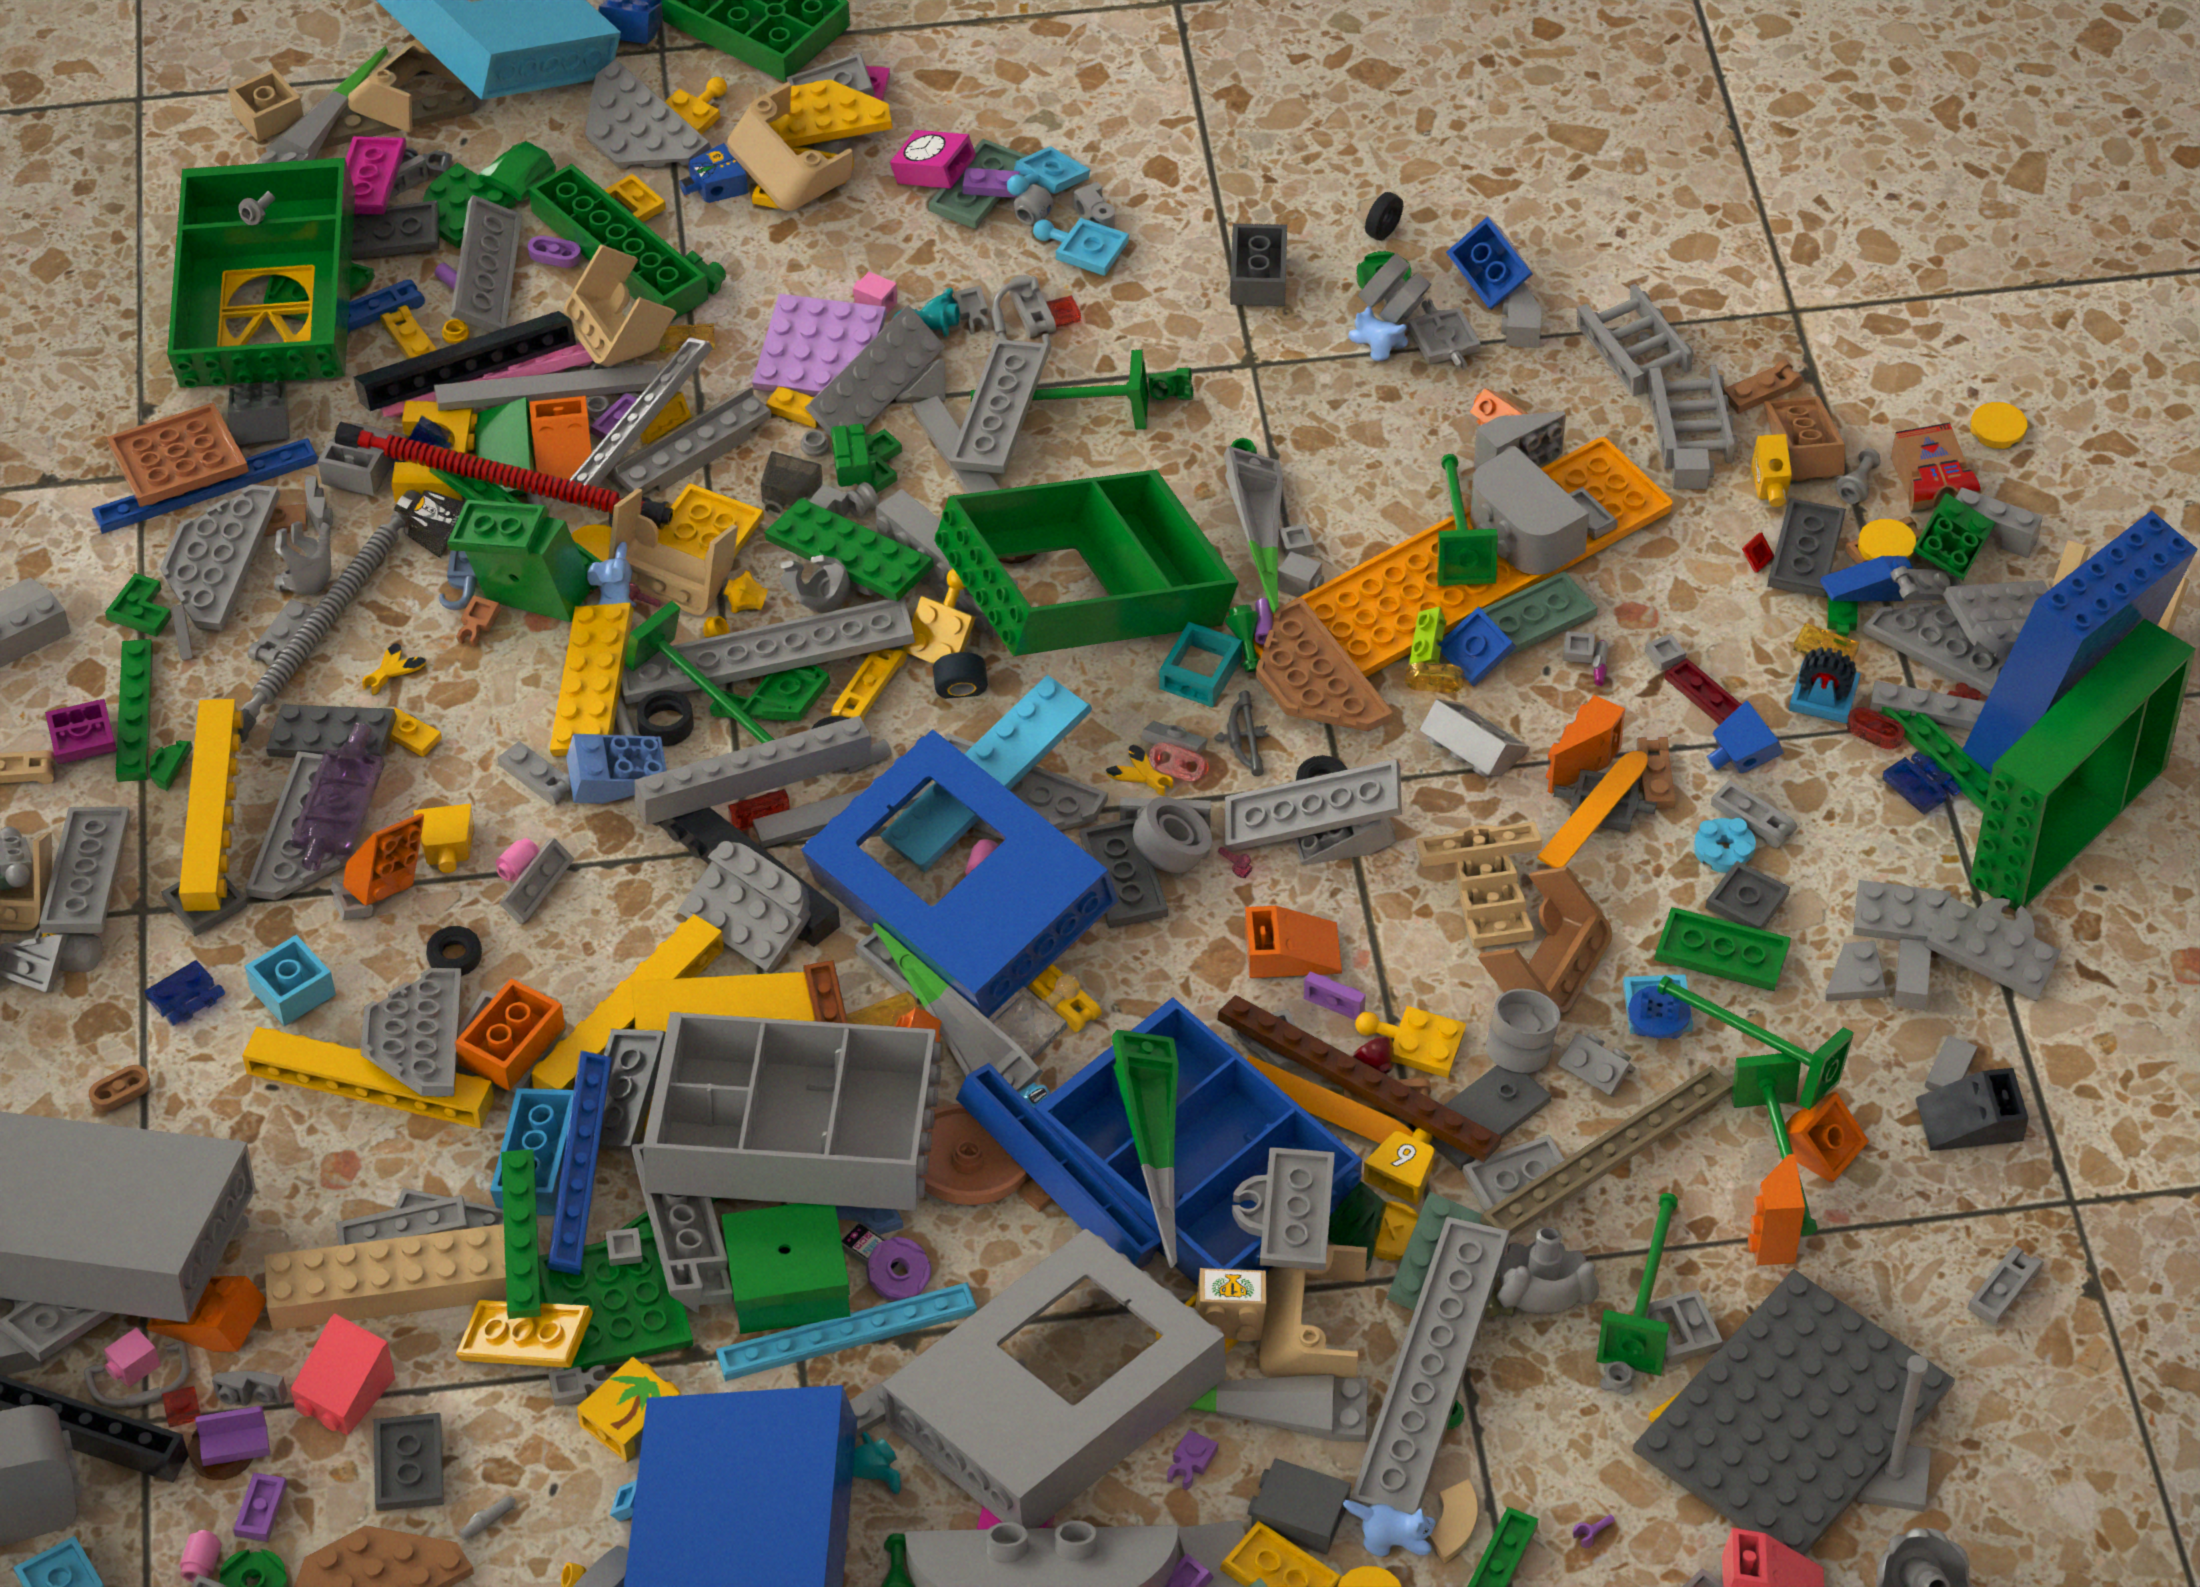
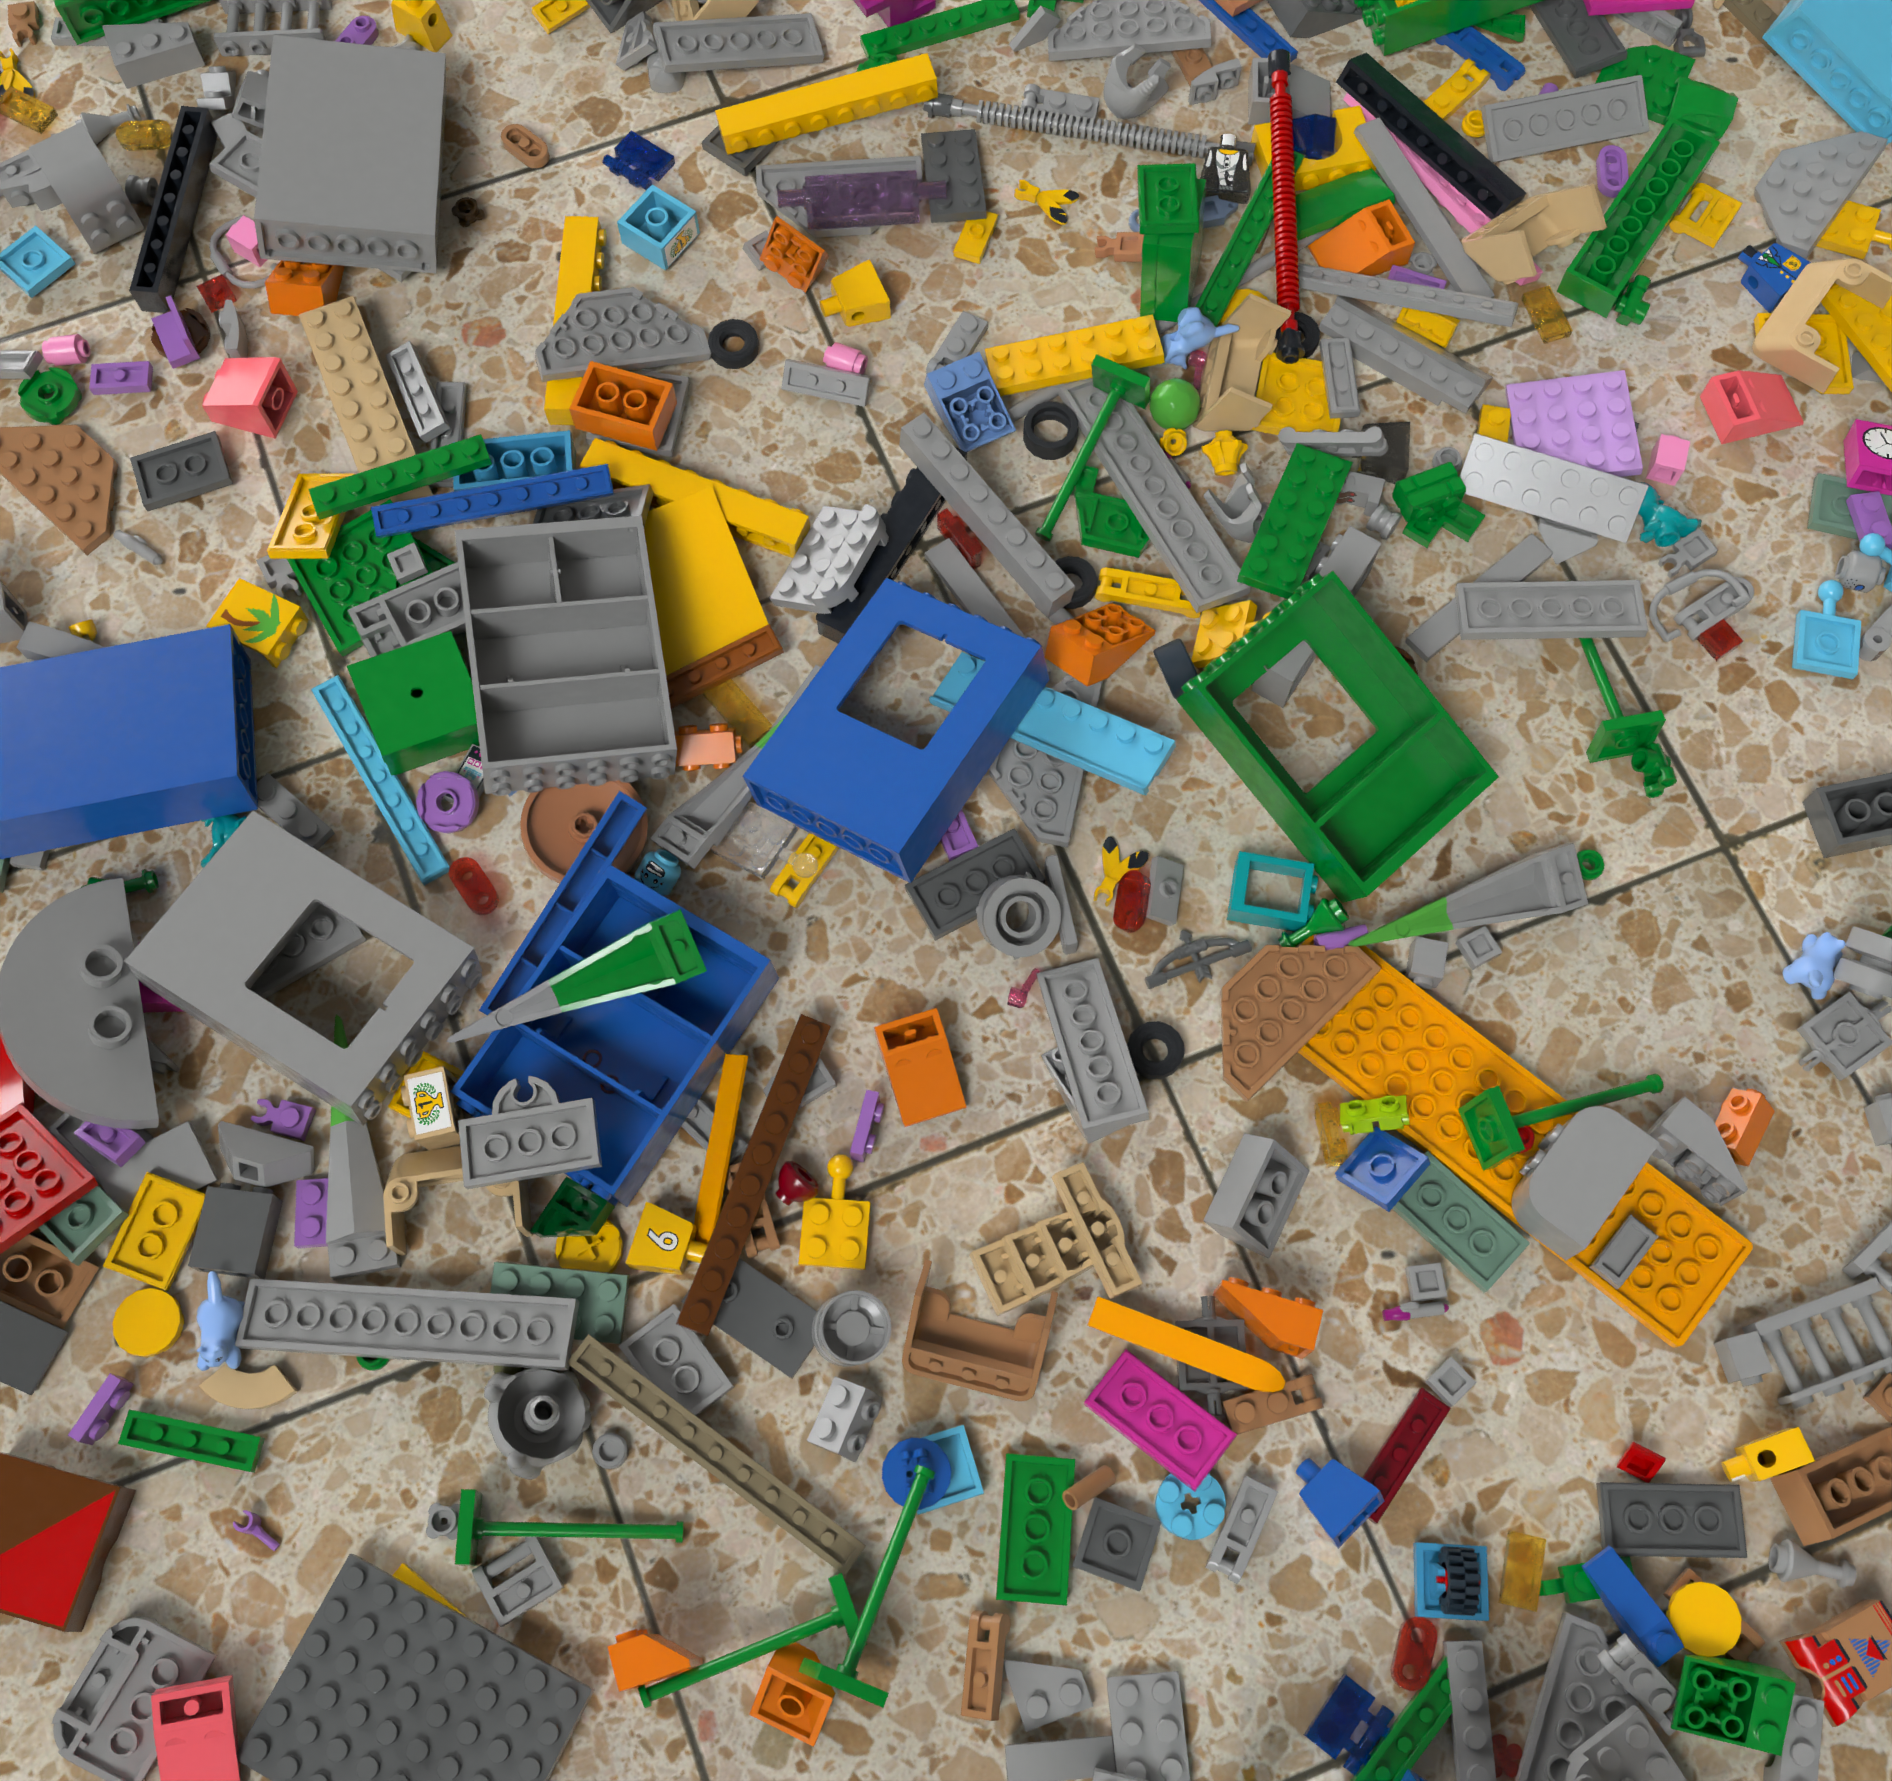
camera: 75 degrees right, 20 degrees up
(691, 614) = (1175, 404): none -> bright green piece
(701, 490) = (1339, 378): none -> light grey tile
(779, 497) = (1341, 443): none -> light grey plate
(843, 230) = (1749, 405): none -> coral slope
(908, 719) = (1096, 643): none -> orange slope
(995, 1263) = (475, 887): none -> clear red plate
(1227, 1476) = (263, 1157): none -> light grey slope
(1296, 1446) = (311, 1213): none -> medium lavender plate
(1586, 1241) = (610, 1451): none -> light grey tile
(1651, 844) = (1160, 1420): none -> dark pink tile
(1697, 901) = (1089, 1487): none -> medium nougat hinge
(1828, 1004) = (984, 1665): none -> medium nougat plate

